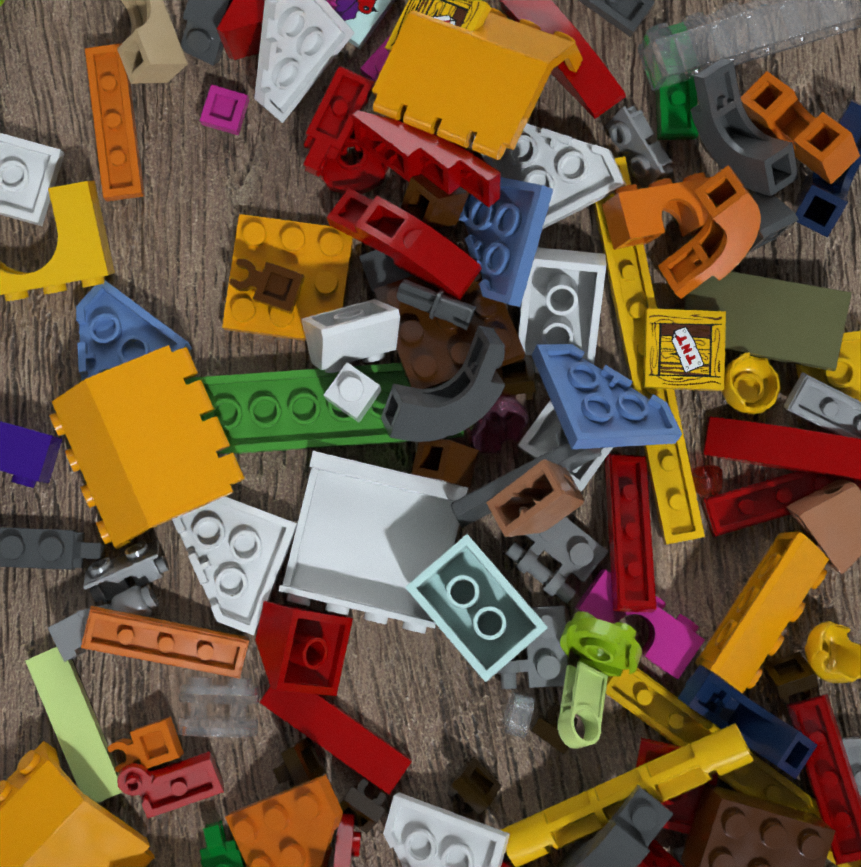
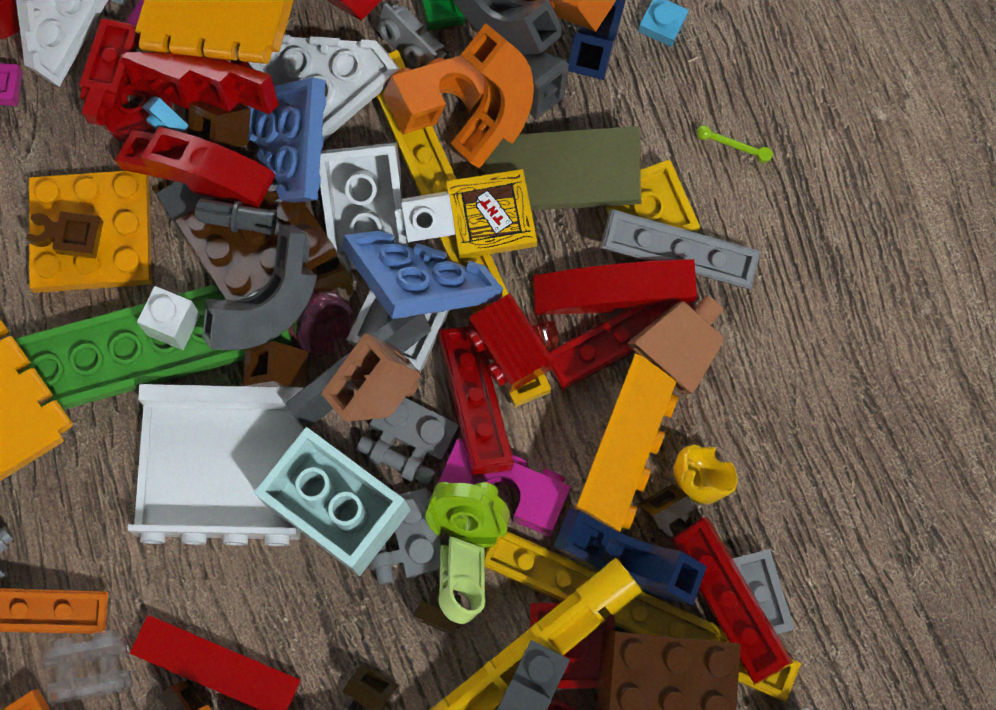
camera: 15 degrees left, 10 degrees down
(236, 557) = (79, 509): white plate -> none
(302, 648) = (165, 585): red slope -> none
(351, 334) = (160, 263): white slope -> none
(381, 183) = (163, 116): none -> medium azure plate
(518, 714) = (396, 600): clear piece -> none
(621, 343) = (425, 217): none -> white brick
(675, 488) = (509, 344): none -> red brick
(750, 384) = (563, 234): yellow hair -> none

